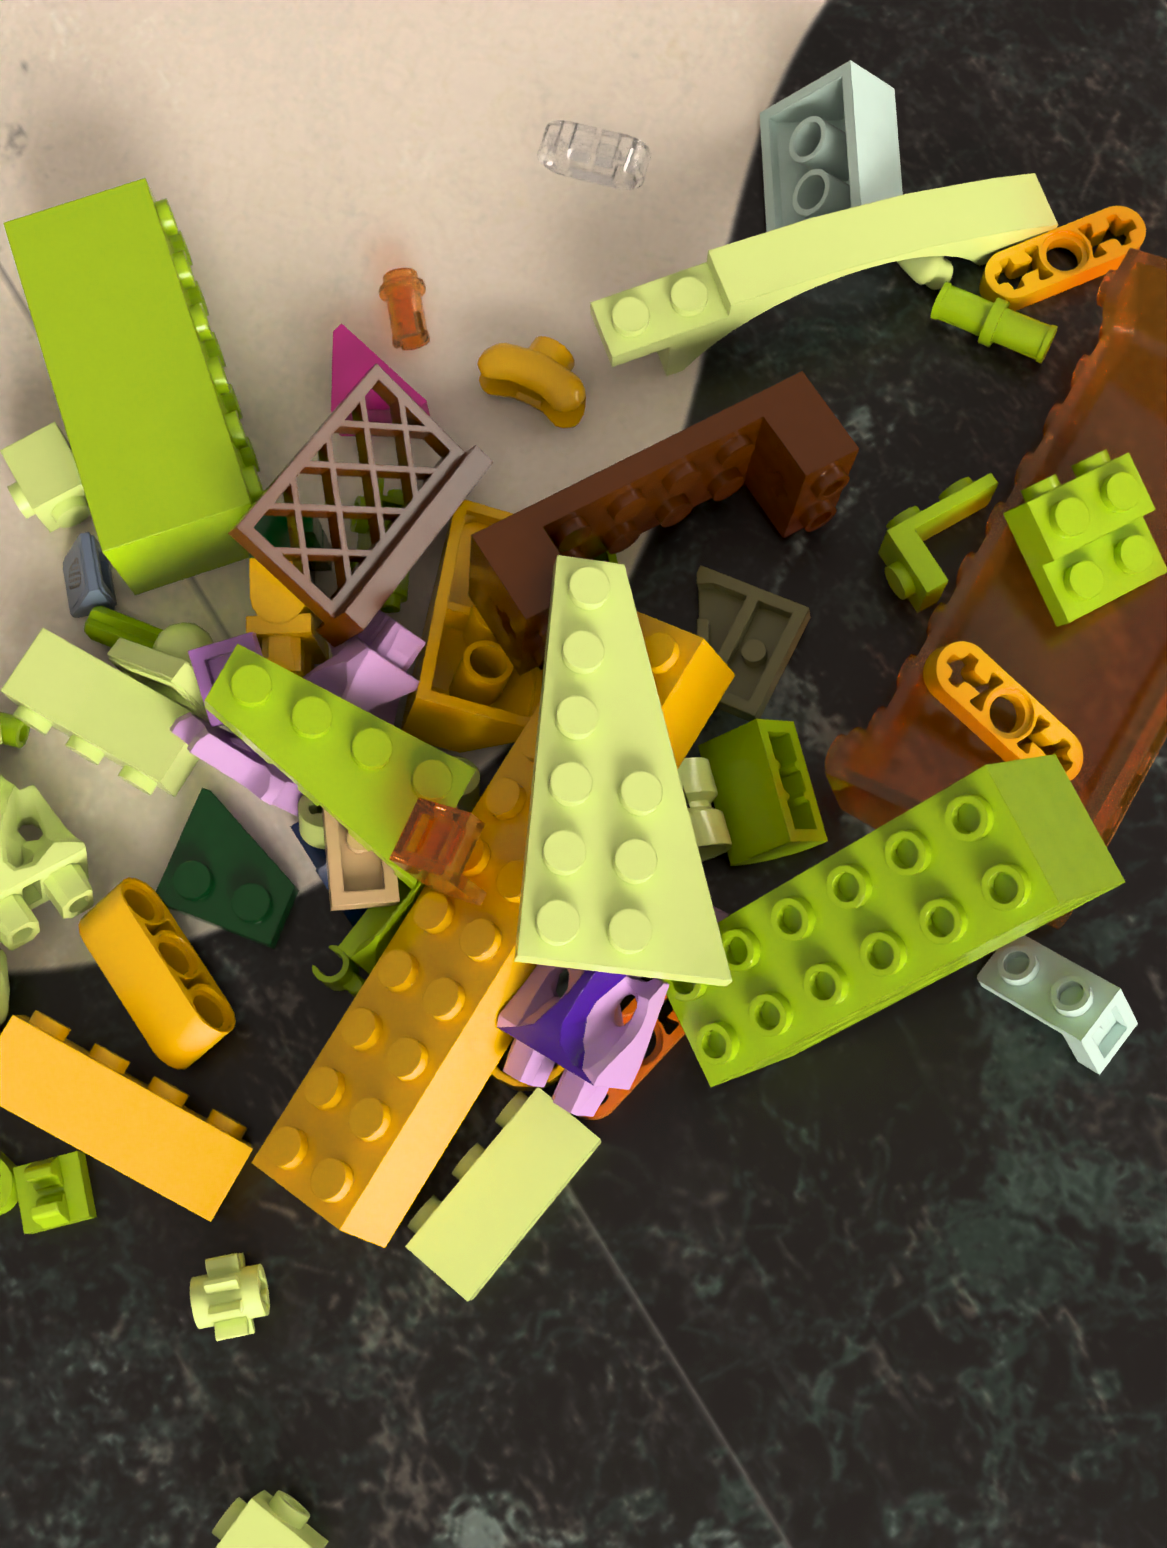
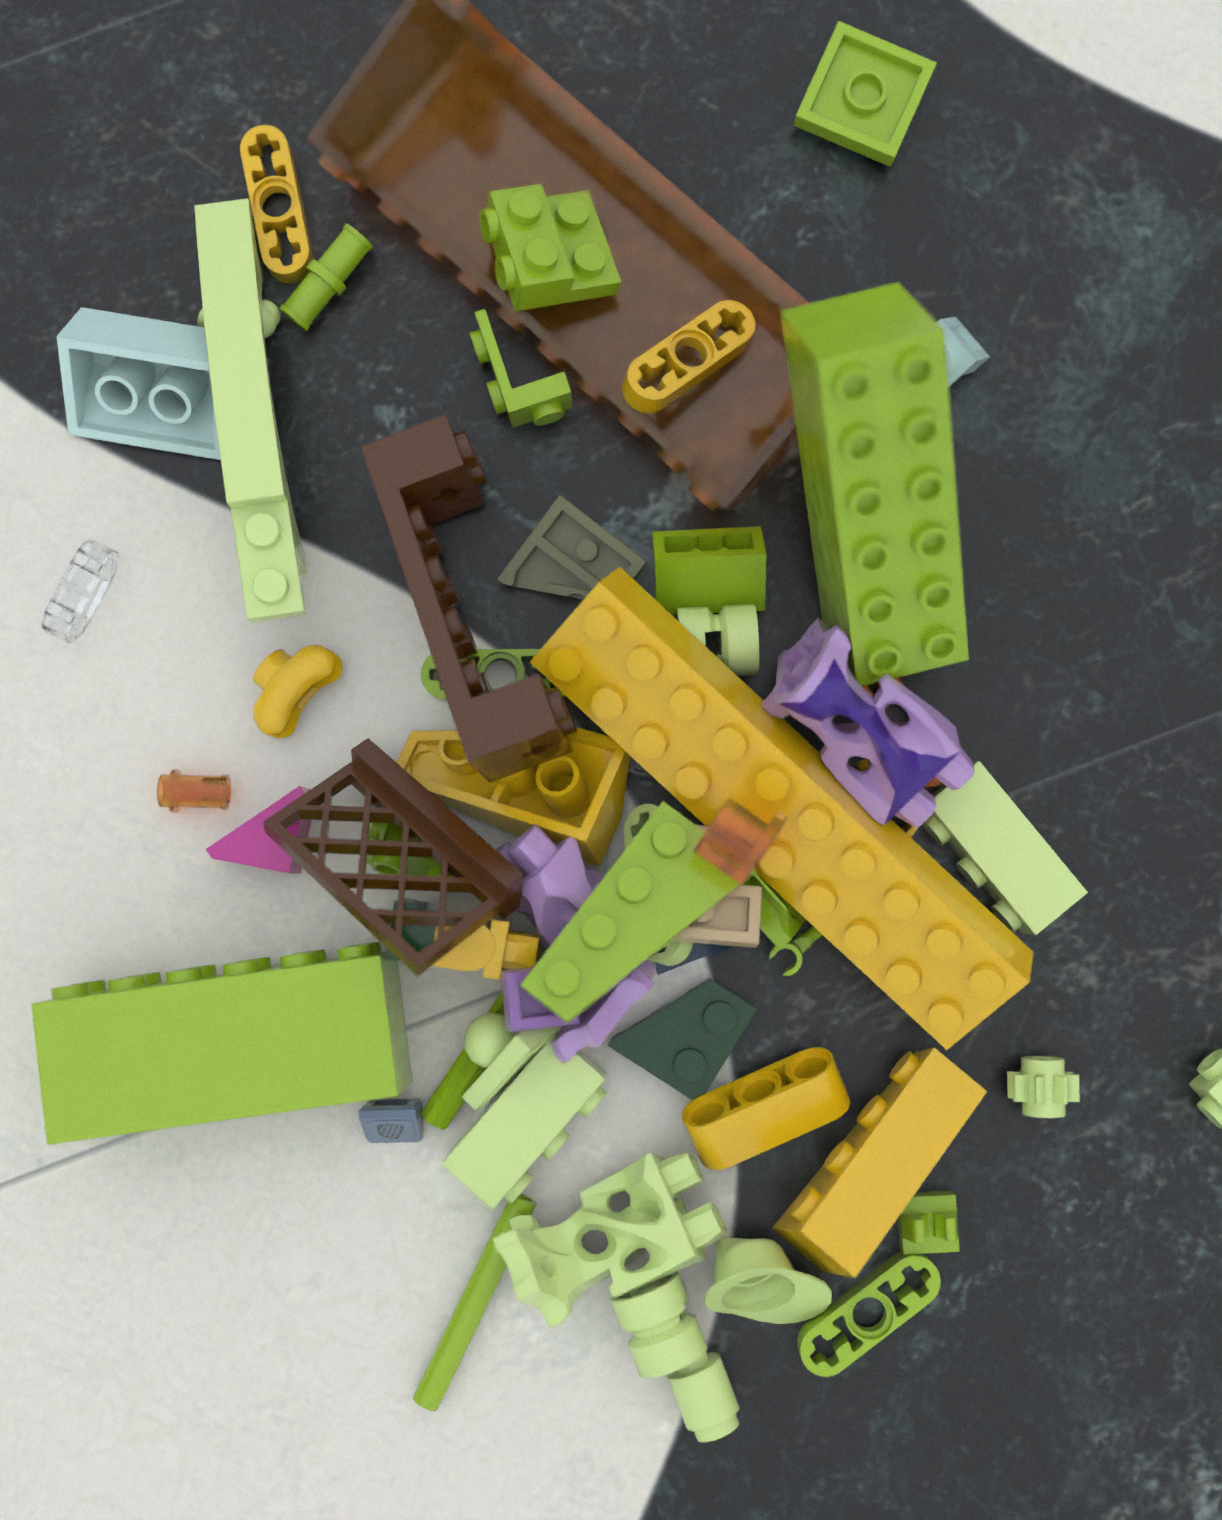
camera: 80 degrees left, 10 degrees up
(46, 479) = (292, 1142): yellowish green brick -> none
(608, 830) = (761, 693): yellowish green wing -> none

